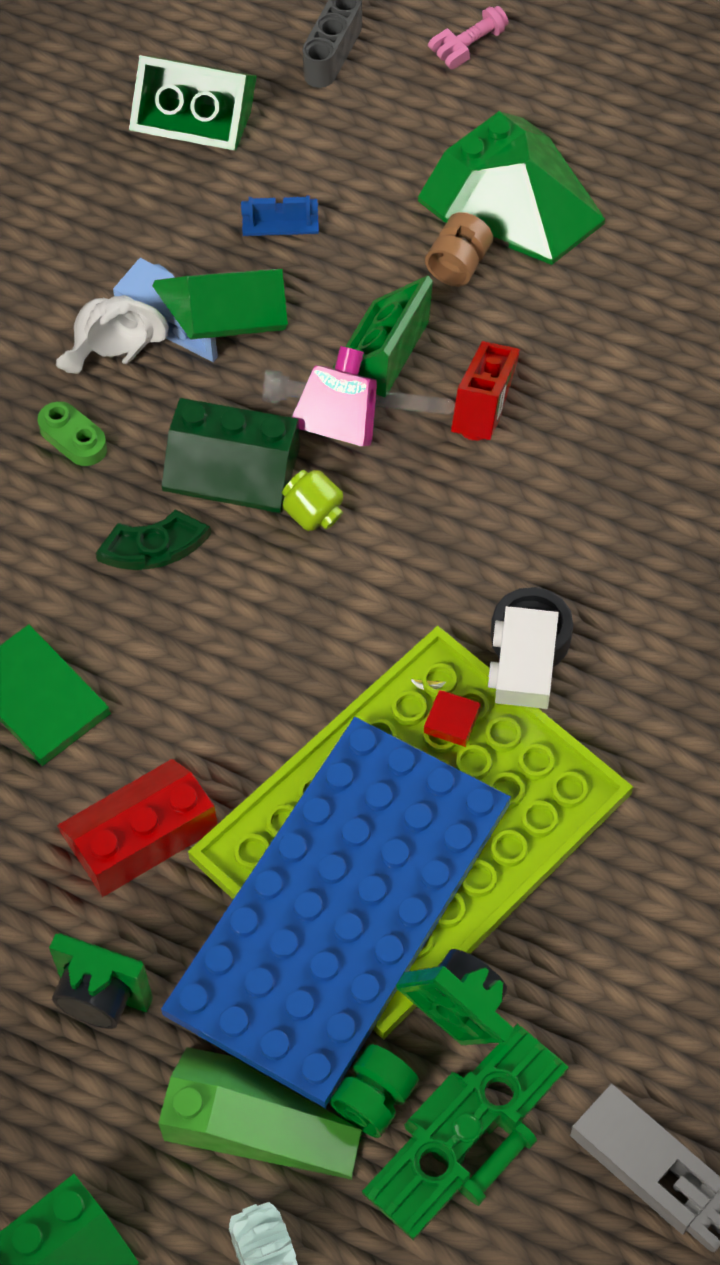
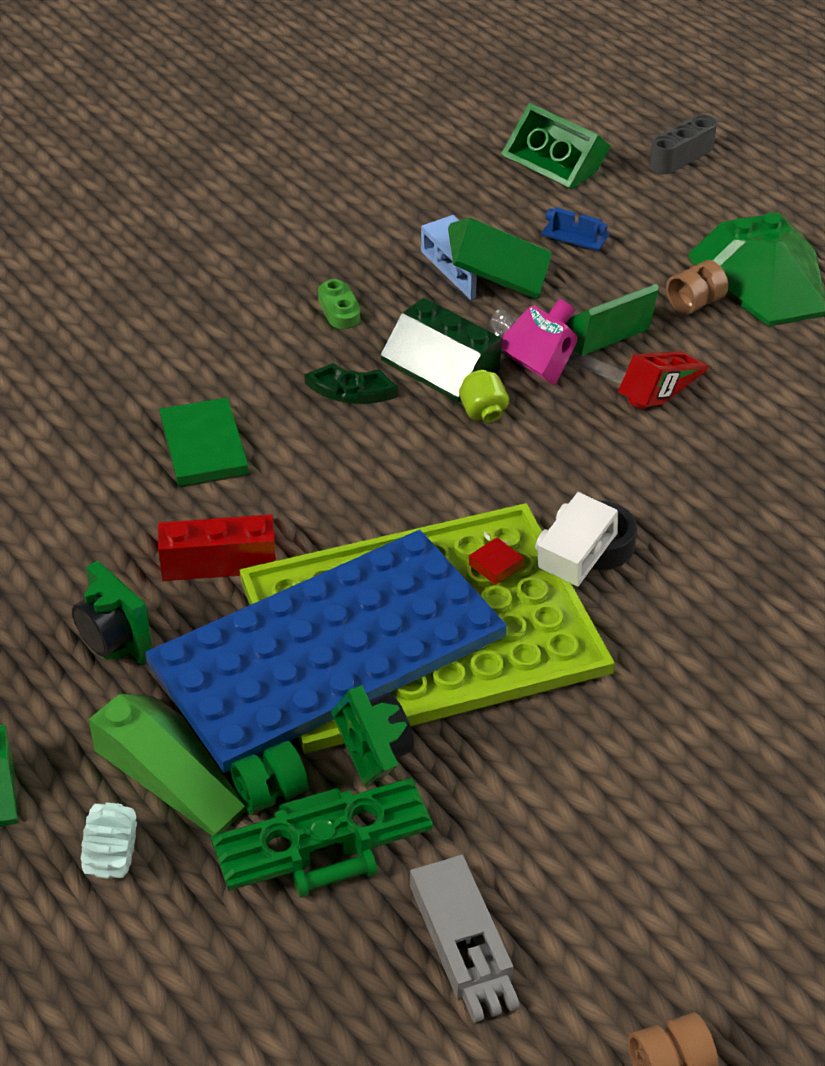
camera: 25 degrees right, 15 degrees down
(113, 329) = (407, 251): white piece -> none
(454, 48) = (773, 179): bright pink hinge -> none

